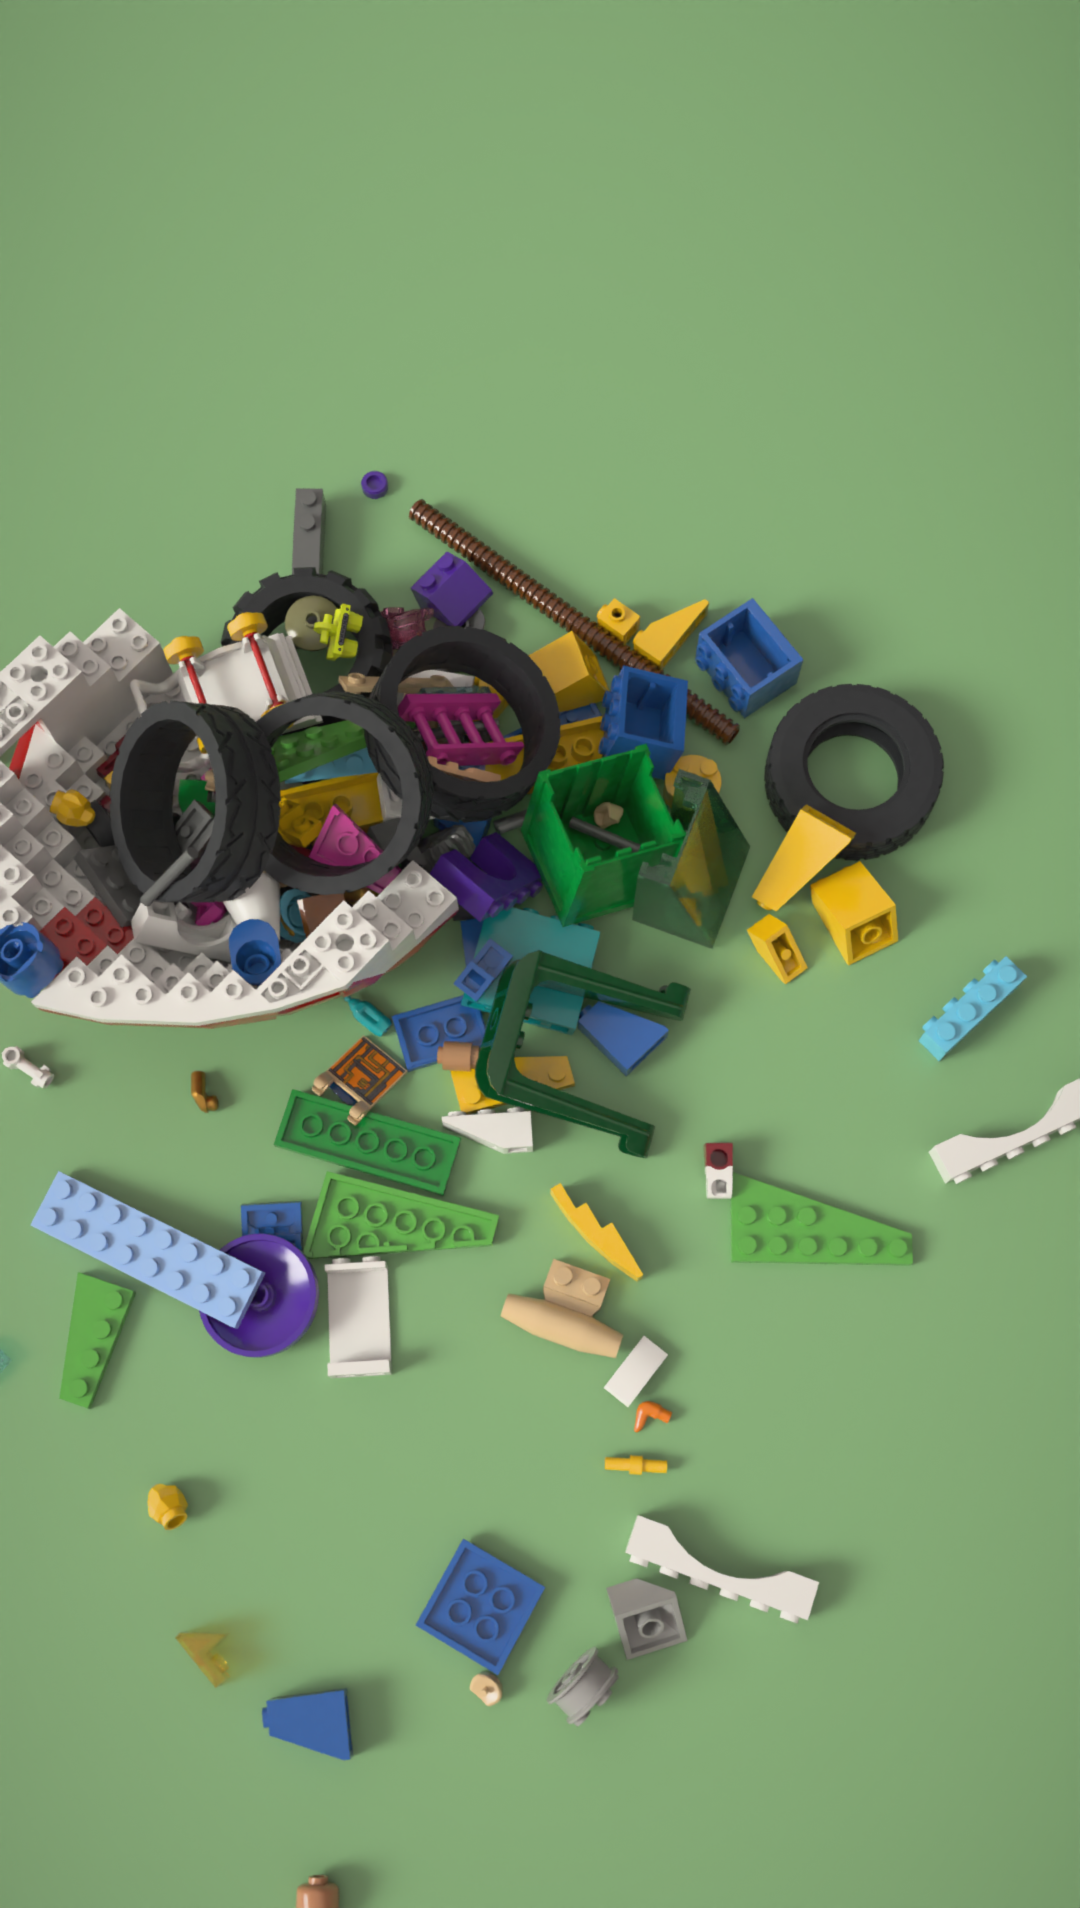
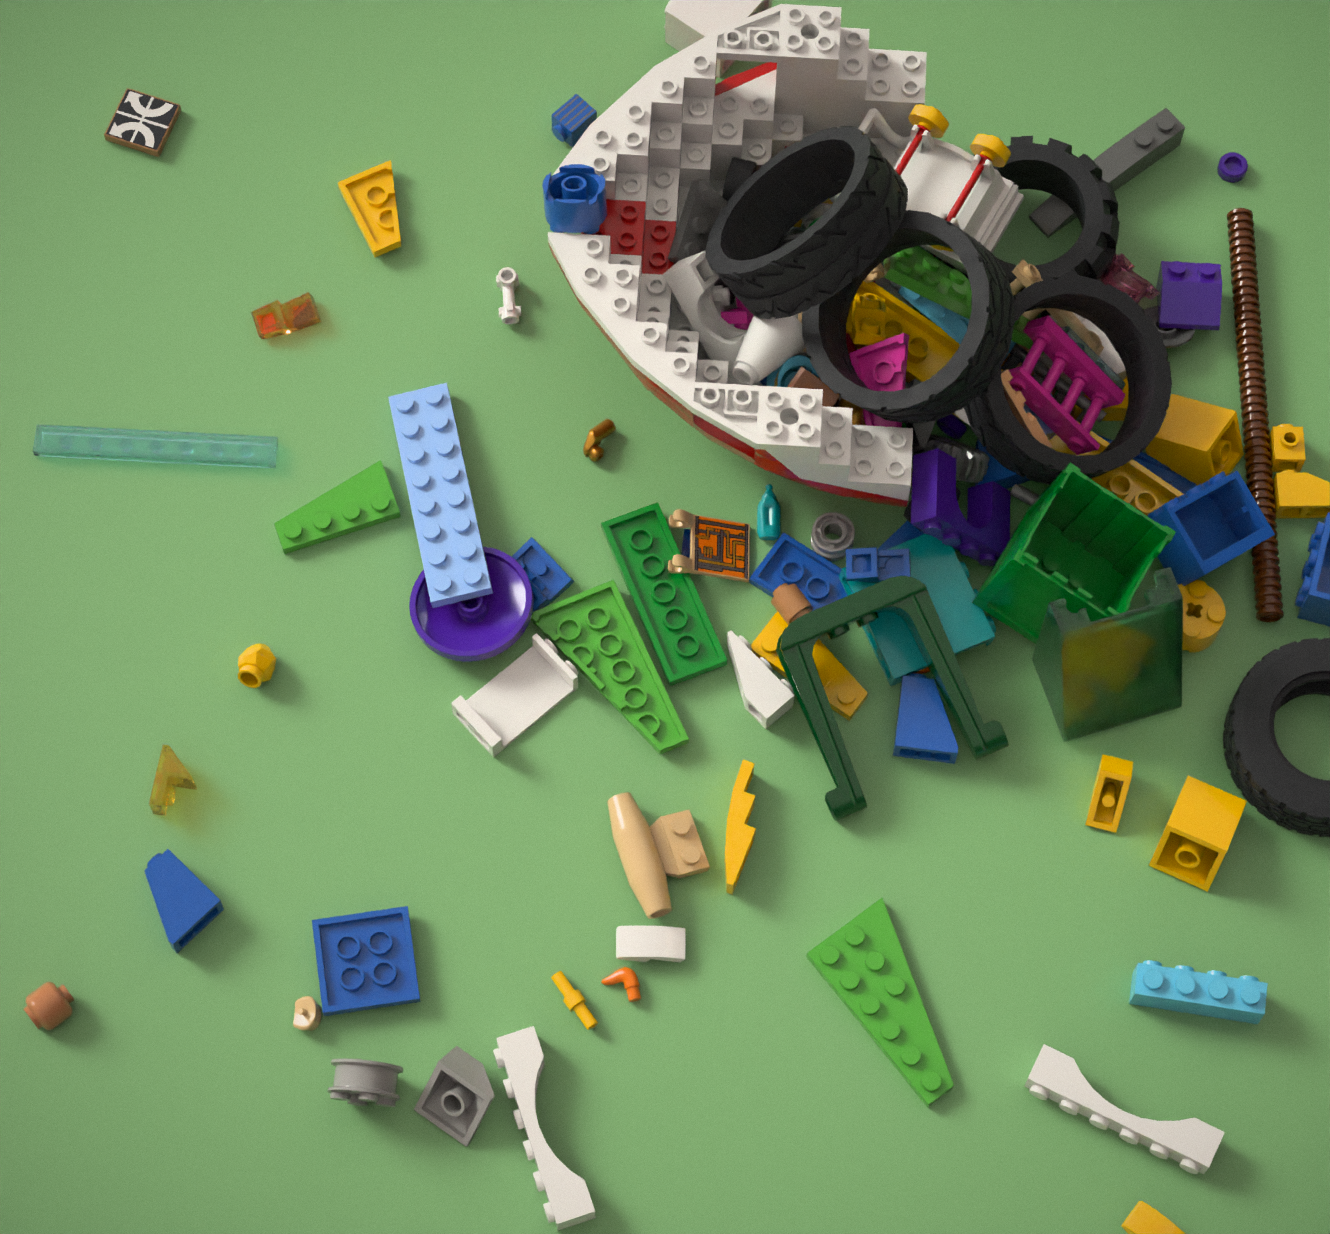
camera: 50 degrees right, 5 degrees down
(72, 808) = (730, 147): yellow rock -> none
(169, 876) = (729, 250): dark grey bar -> none
(254, 951) = (730, 361): blue piece -> none
(298, 627) = (1052, 218): olive dish -> none
(342, 621) = (1073, 225): neon yellow hips -> none
(421, 971) = (832, 523): none -> light grey wheel
(603, 835) = (1077, 566): dark grey bar -> none
(607, 814) = (1101, 563): tan piece -> none
(718, 1170) = (874, 884): leg -> none
(803, 853) = (1205, 743): yellow slope -> none

